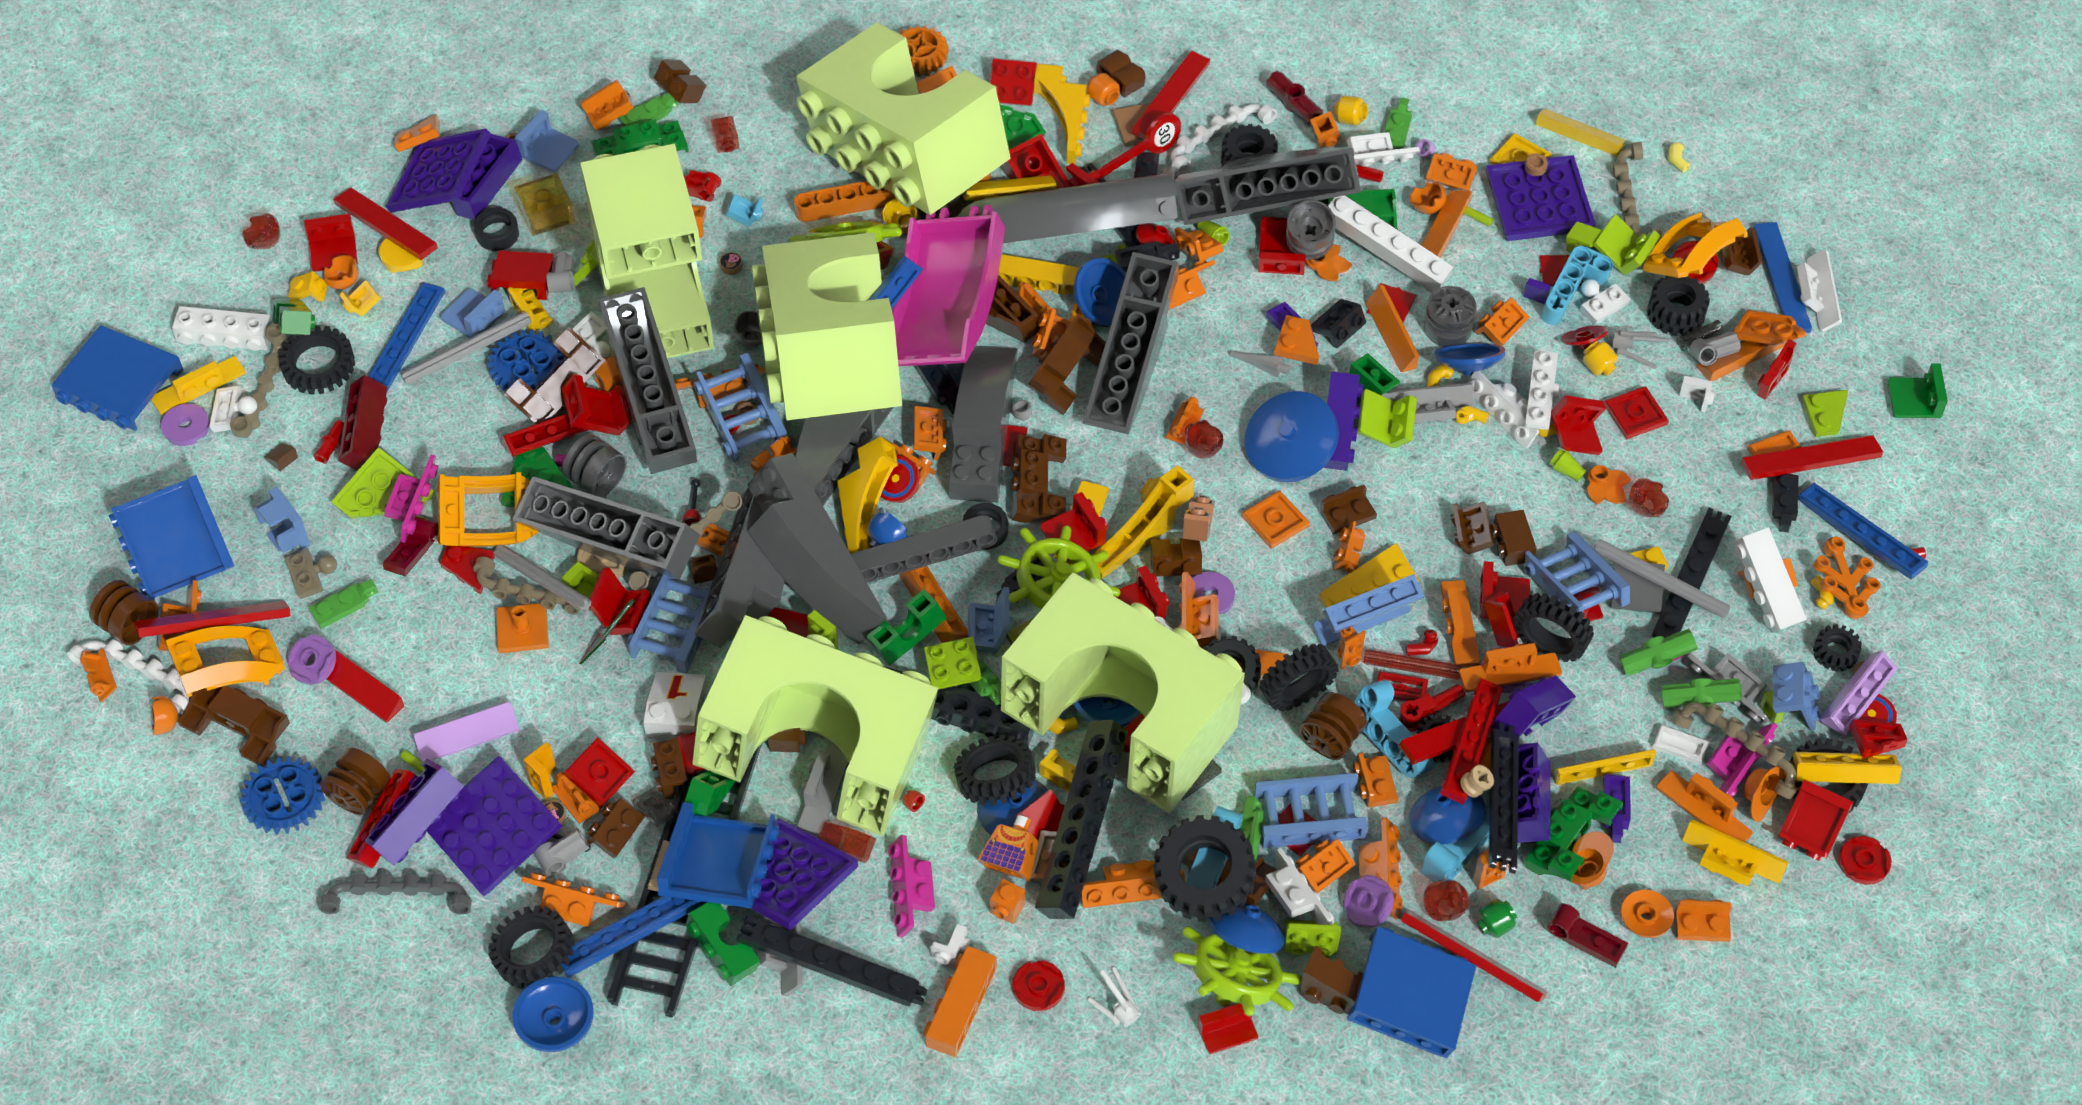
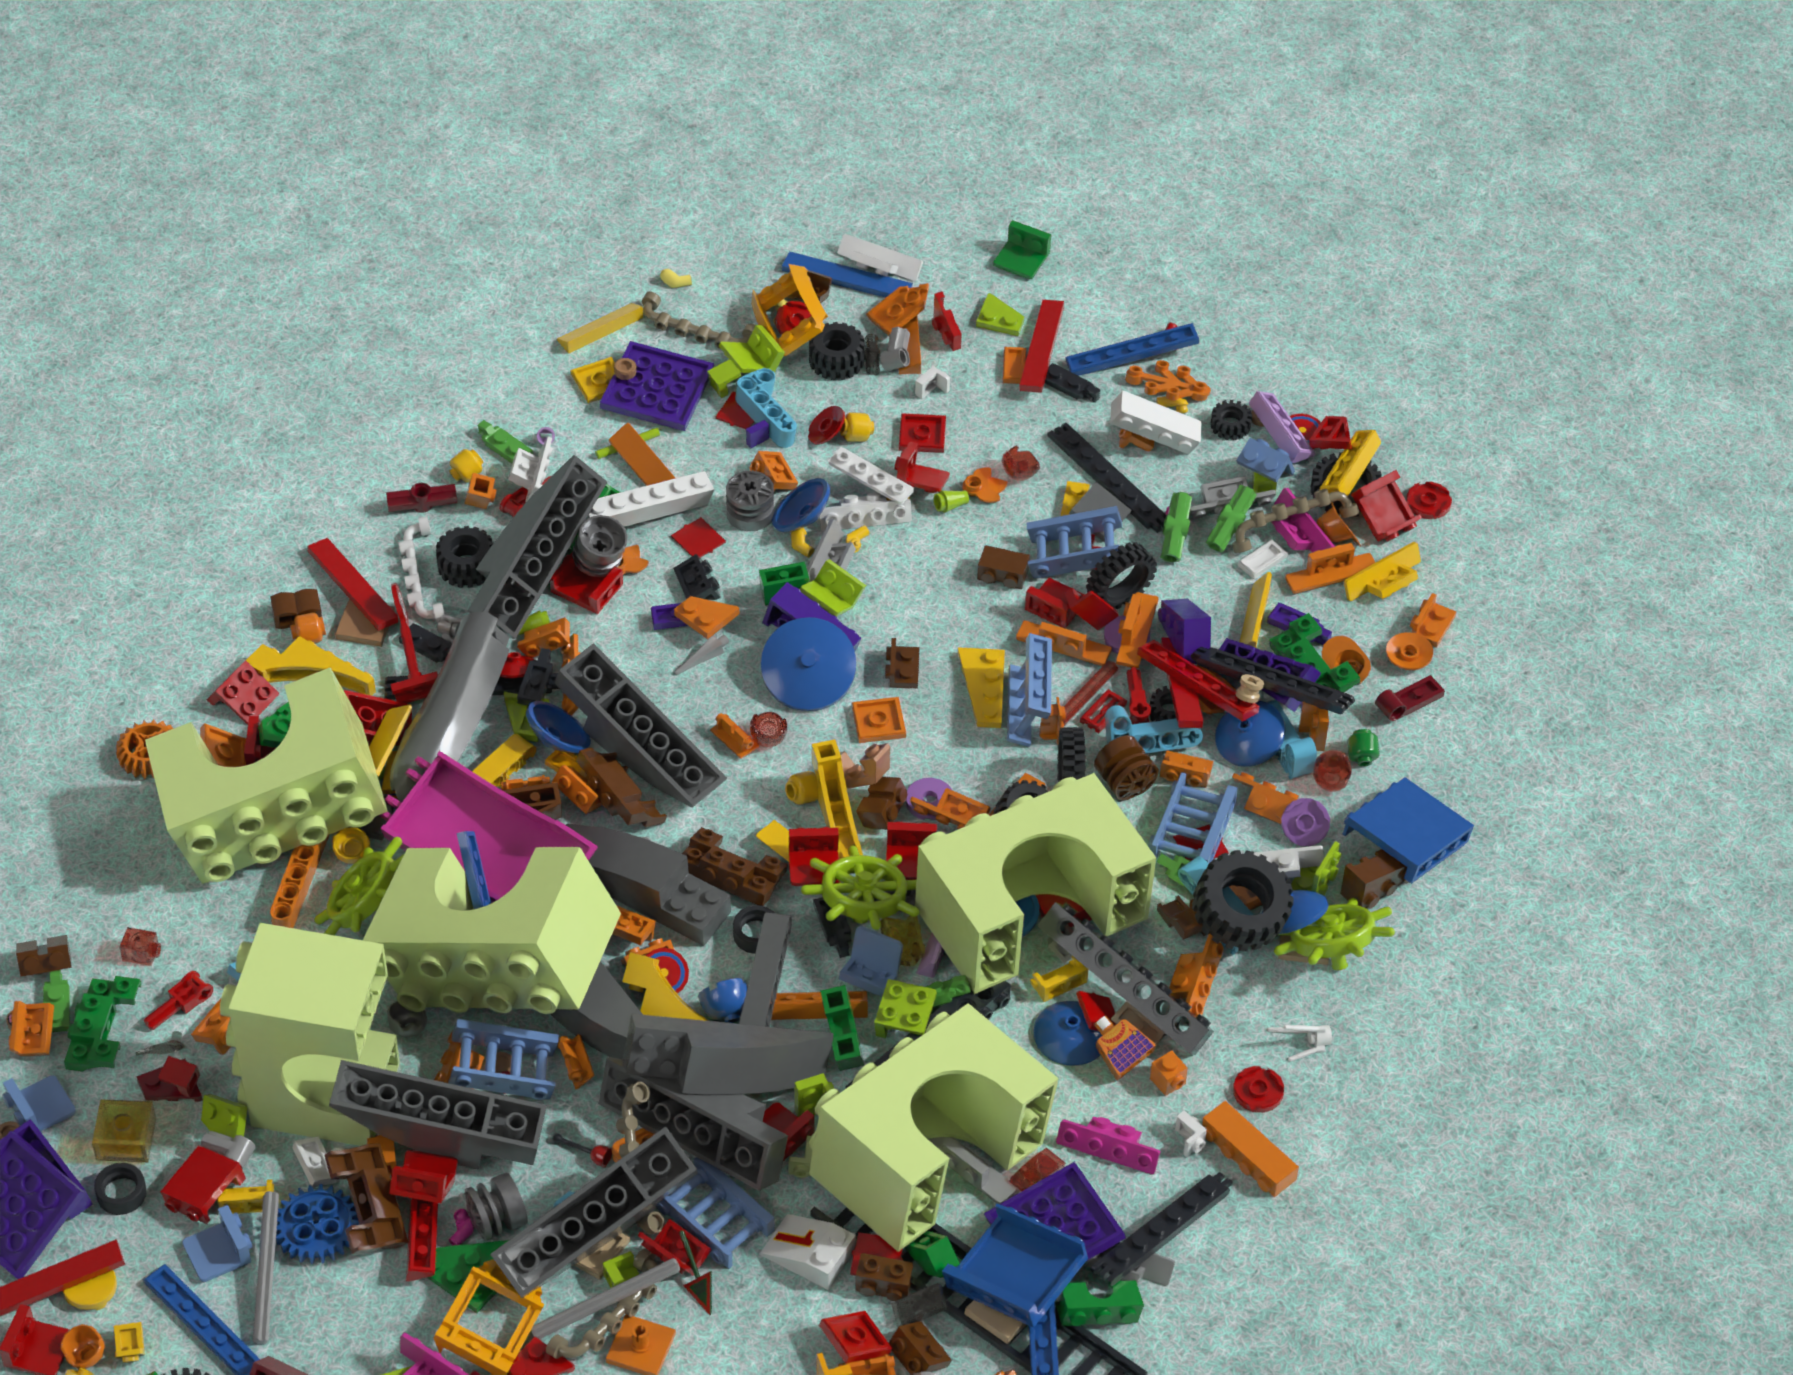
camera: 65 degrees left, 5 degrees down
(998, 788) = (1038, 998): black tyre -> none
(1226, 1028) = (1371, 975): red panel -> none
(1325, 864) = (1249, 834): orange bracket -> none
(1351, 540) = (941, 683): orange hinge -> none
(1392, 330) = (732, 547): orange slope -> none
(1425, 646) = (1071, 675): red arm -> none
(1428, 199) = (607, 456): orange hair -> none
(1452, 172) = (587, 430): orange bracket -> none
(1472, 527) = (976, 588): reddish brown bracket -> none
(1474, 956) = (1389, 778): red tile -> none
(1602, 303) = (796, 397): white plate -> none
(1624, 339) = (848, 401): light grey plant -> none
(1662, 578) = (1108, 490): light grey axle -> none

